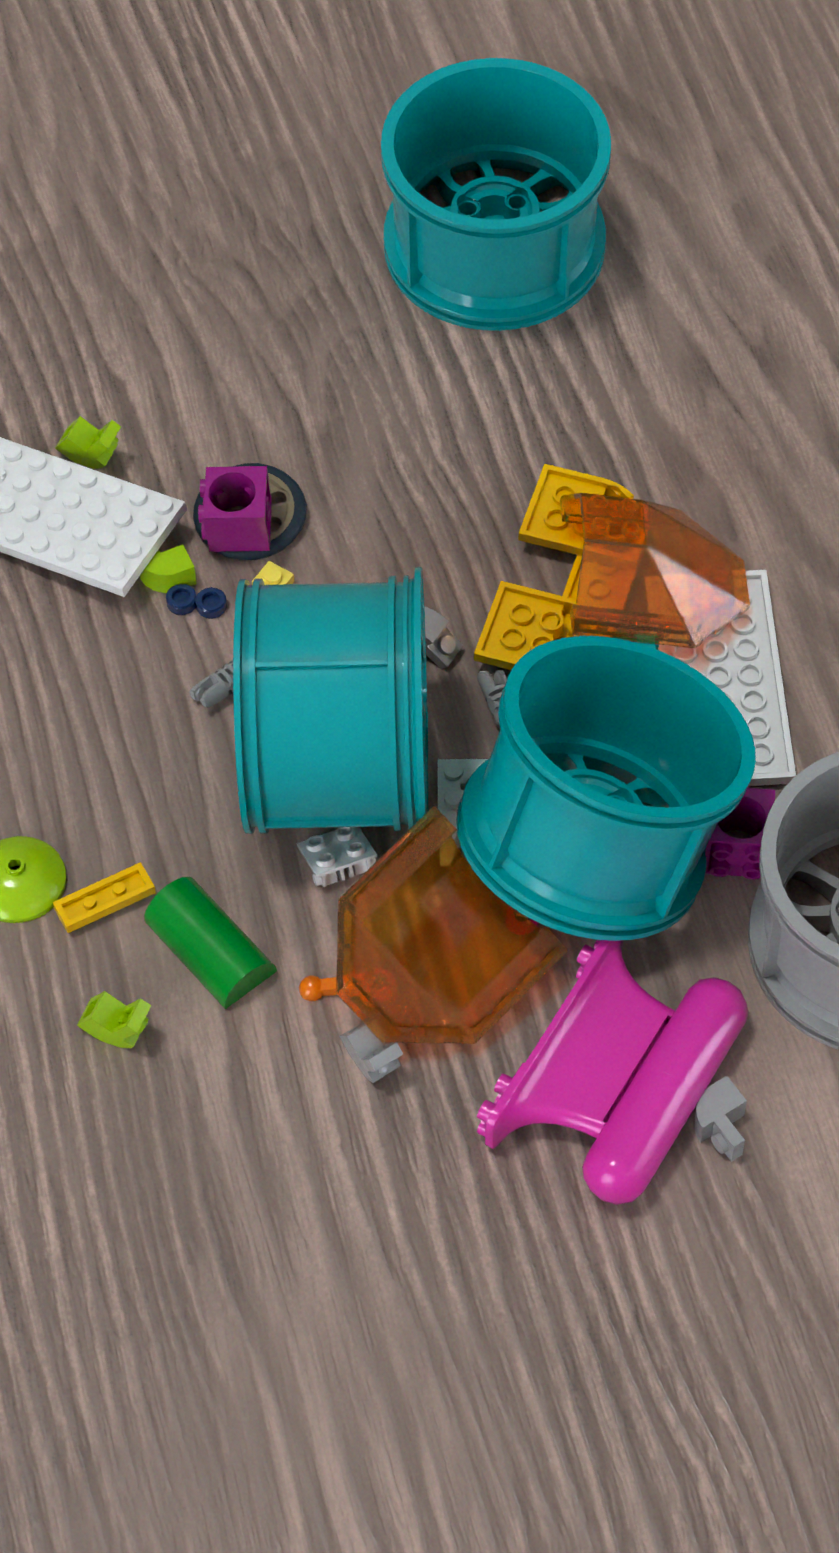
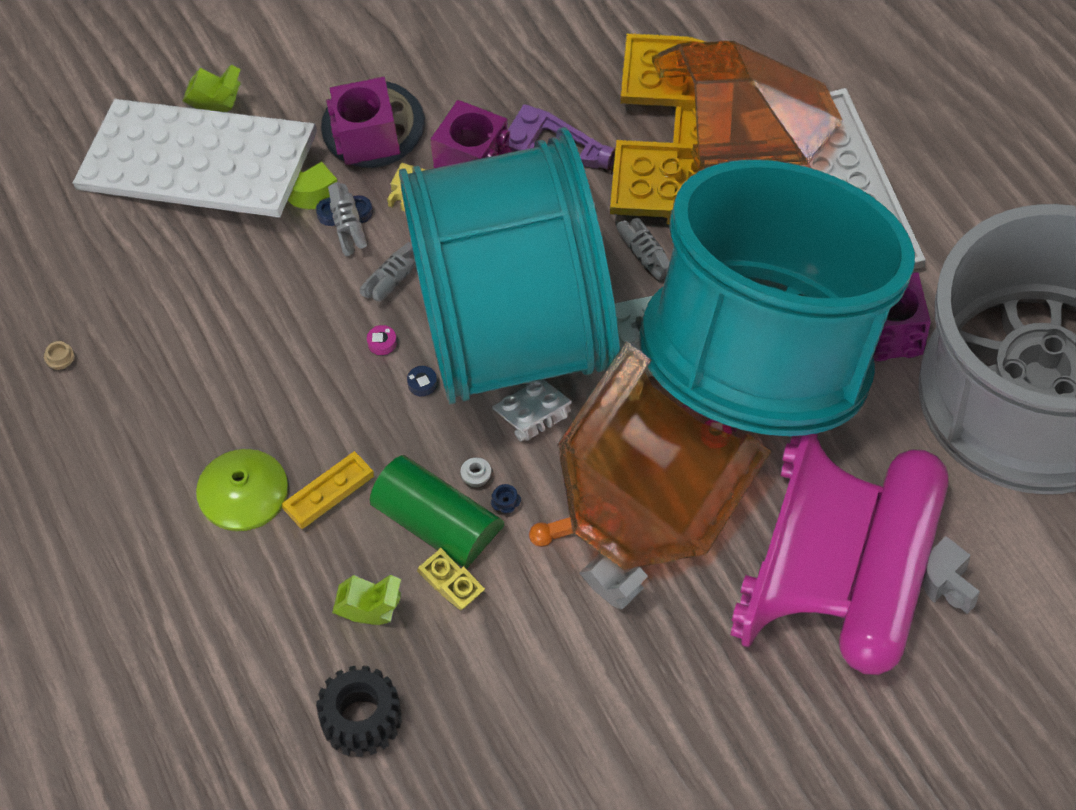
camera: 10 degrees left, 0 degrees up
(73, 1107) = (352, 688): none -> black tyre
(194, 611) = (346, 218): none -> light grey hinge
(199, 749) = (381, 340): none -> dark pink tile
(206, 1016) = (450, 580): none -> light yellow slope
(227, 801) = (422, 380): none -> dark blue tile
(261, 917) = (475, 479): none -> white plate
(282, 936) = (502, 492): none -> dark blue plate
(344, 537) = (469, 135): none -> magenta brick
(415, 545) = (531, 122): none -> medium lavender plate

